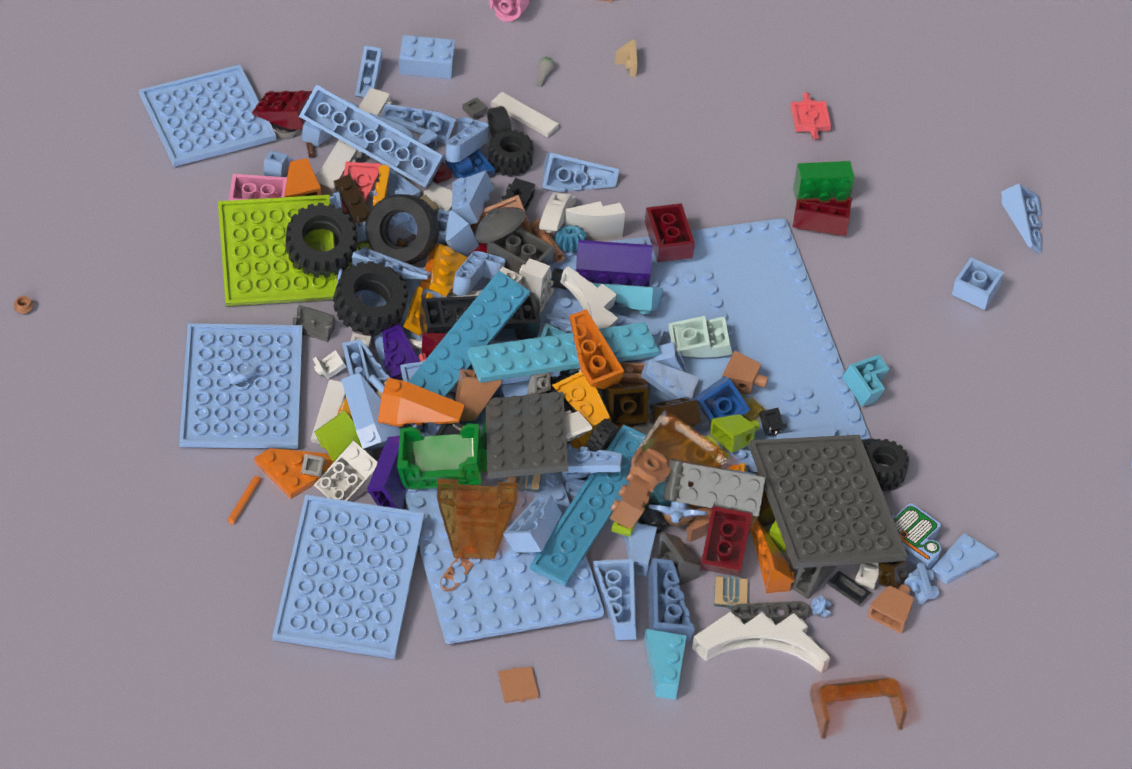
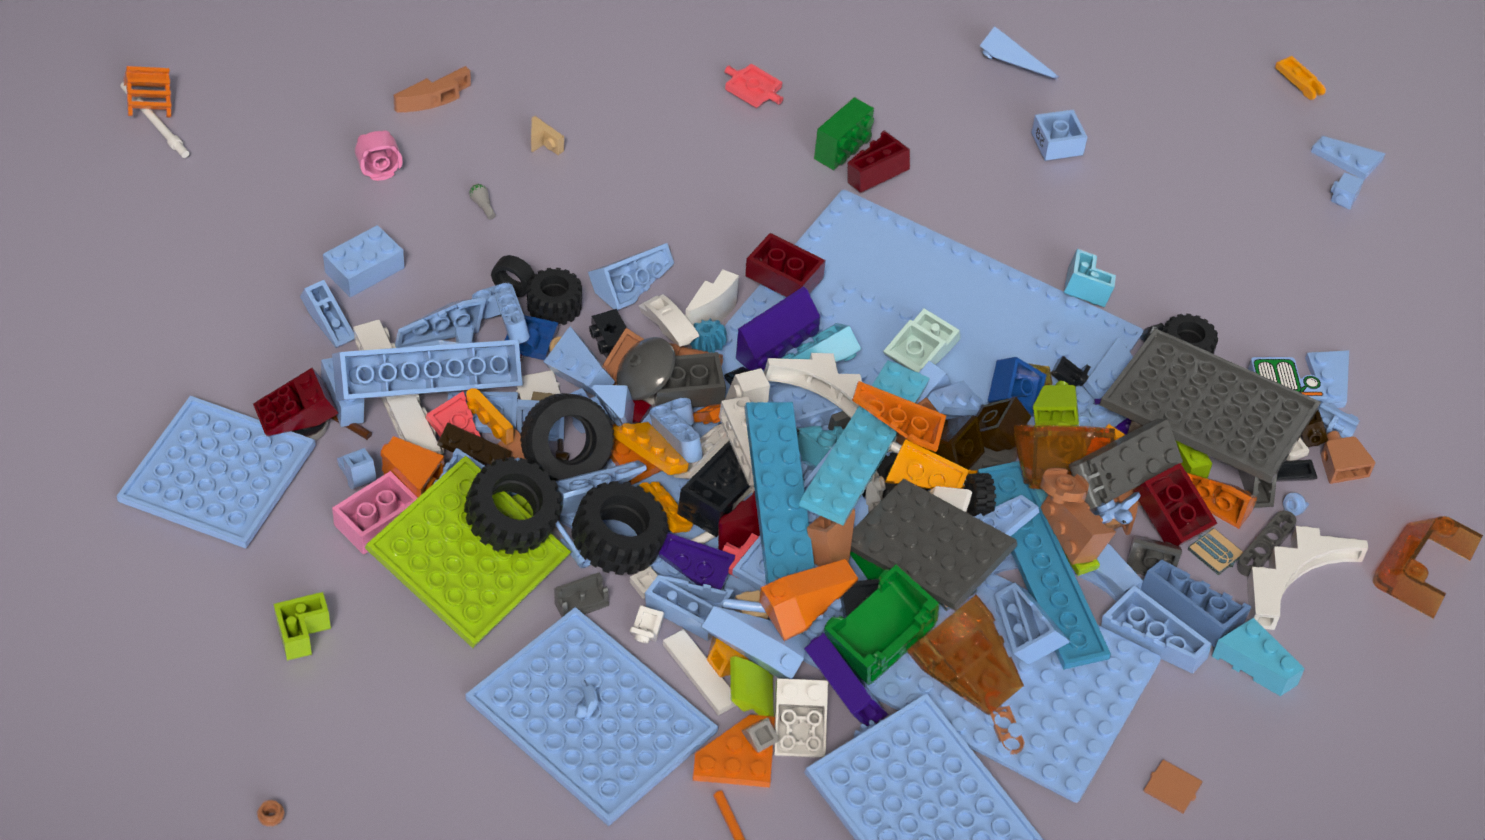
camera: 45 degrees left, 0 degrees up
(148, 219) = (298, 619): none -> lime brick
(474, 108) = (465, 278): dark grey plate -> none
(525, 114) = (529, 251): white tile -> none
(744, 373) = (993, 345): nougat torso -> none

